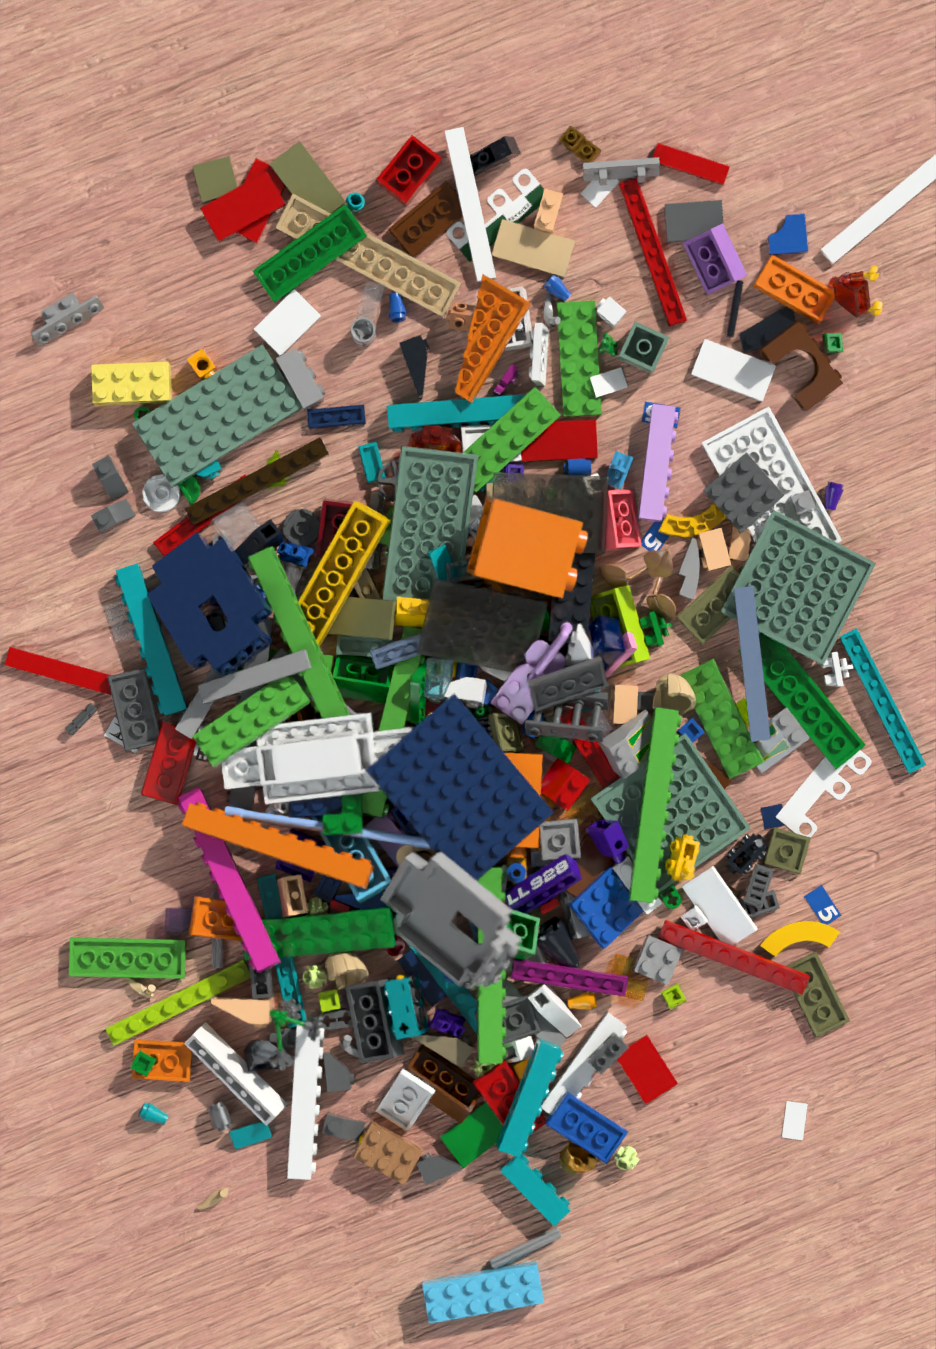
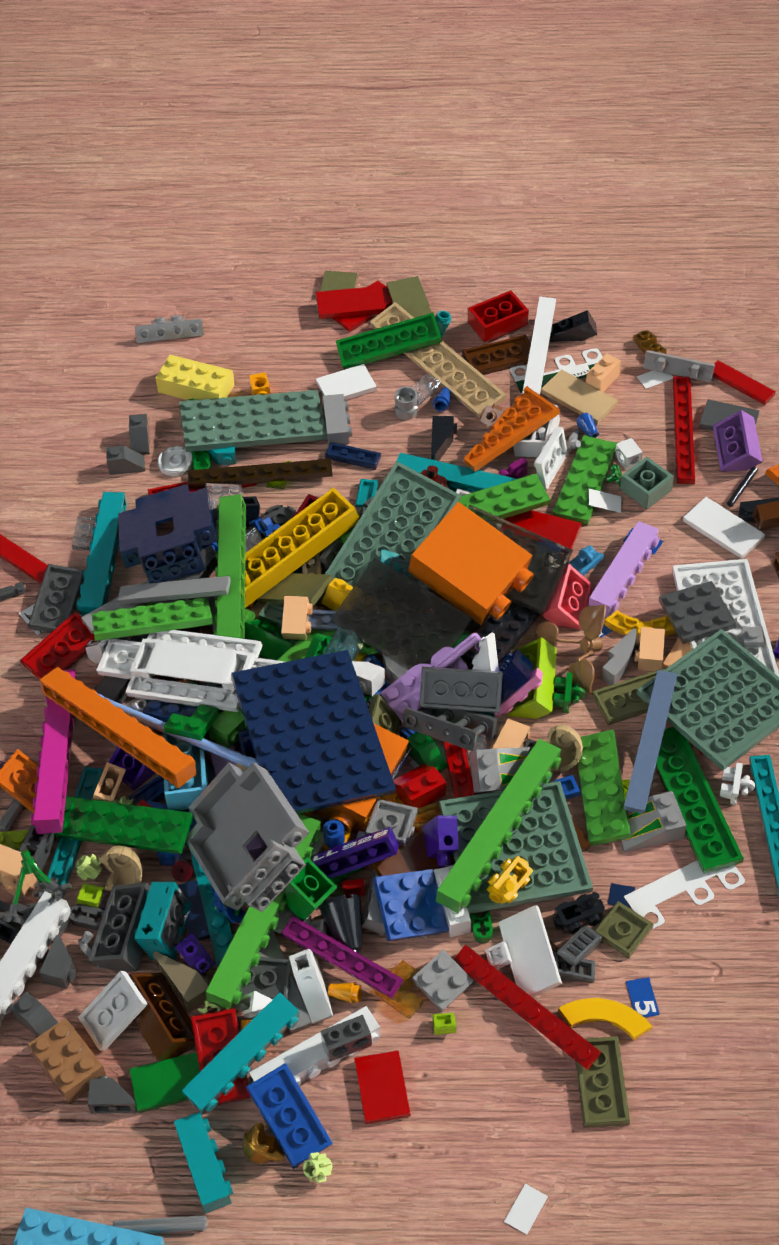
camera: 25 degrees right, 35 degrees down
(383, 663) = (295, 617): none -> light nougat brick

